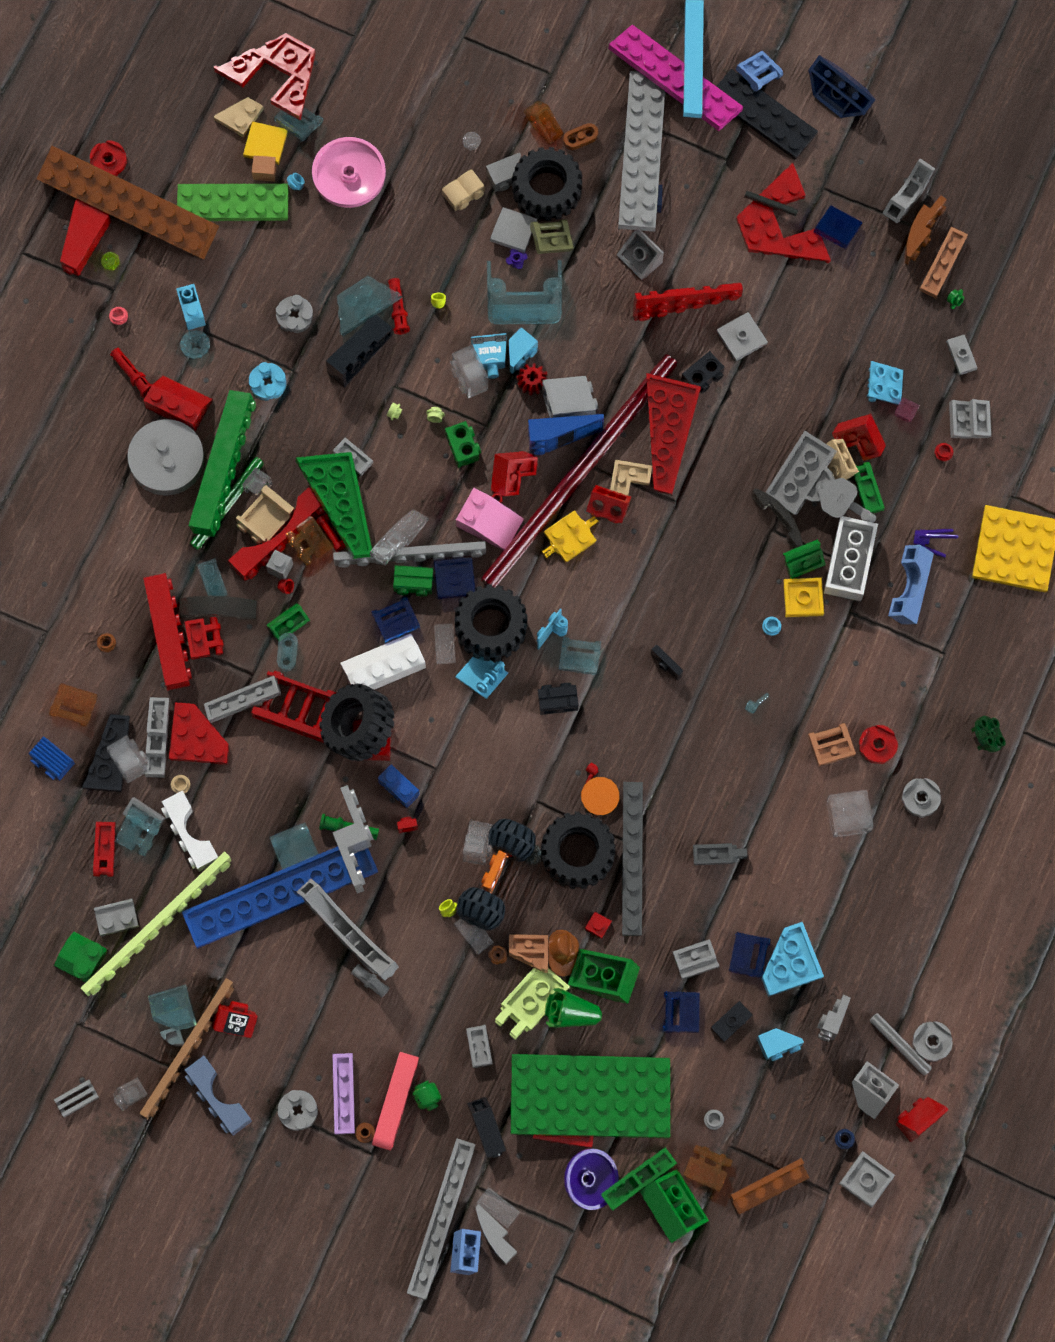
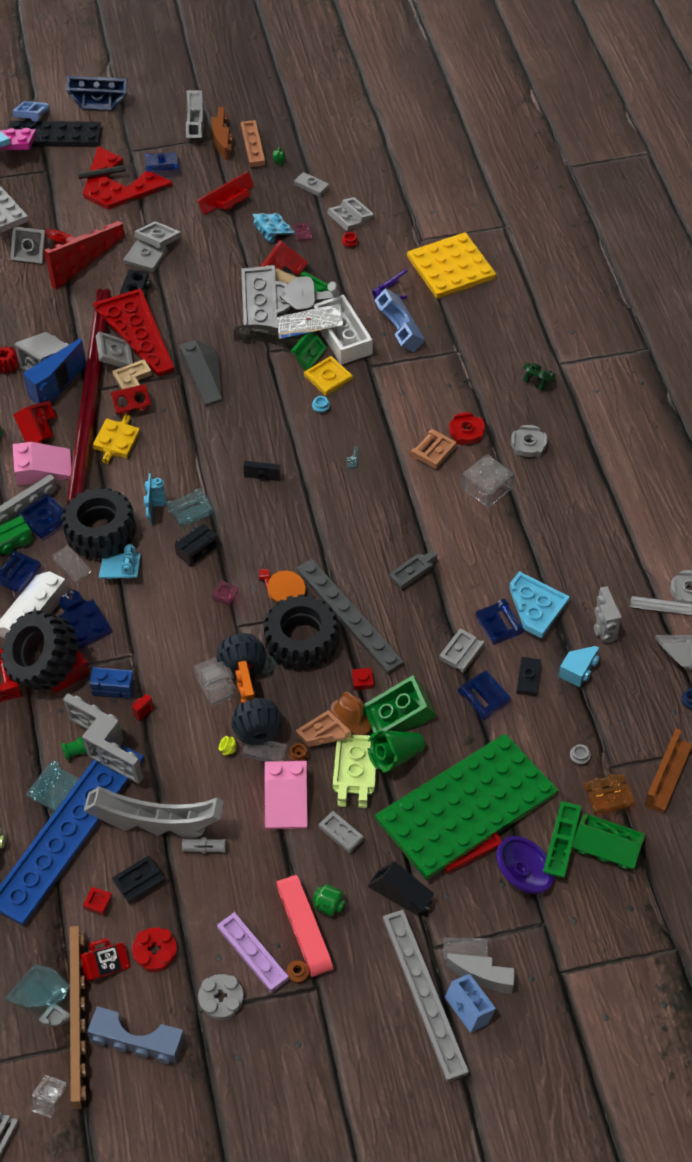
camera: 35 degrees left, 20 degrees down
(262, 968) = (97, 901): none -> red plate
(276, 1026) = (151, 937): none -> red plate
(303, 973) = (138, 879): none -> black plate
(416, 707) = (84, 617): none -> clear blue plate
(460, 985) = (286, 795): none -> bright pink slope
(547, 764) = (225, 592): none -> clear pink plate
(631, 439) = (113, 350): none -> light grey plate
(677, 261) = (58, 236): none -> red dish
(699, 510) = (203, 368): none -> dark grey wedge
(767, 322) = (157, 234): none -> light grey plate
(824, 533) = (309, 321): none -> sticker
(871, 316) = (227, 195): none -> red bracket

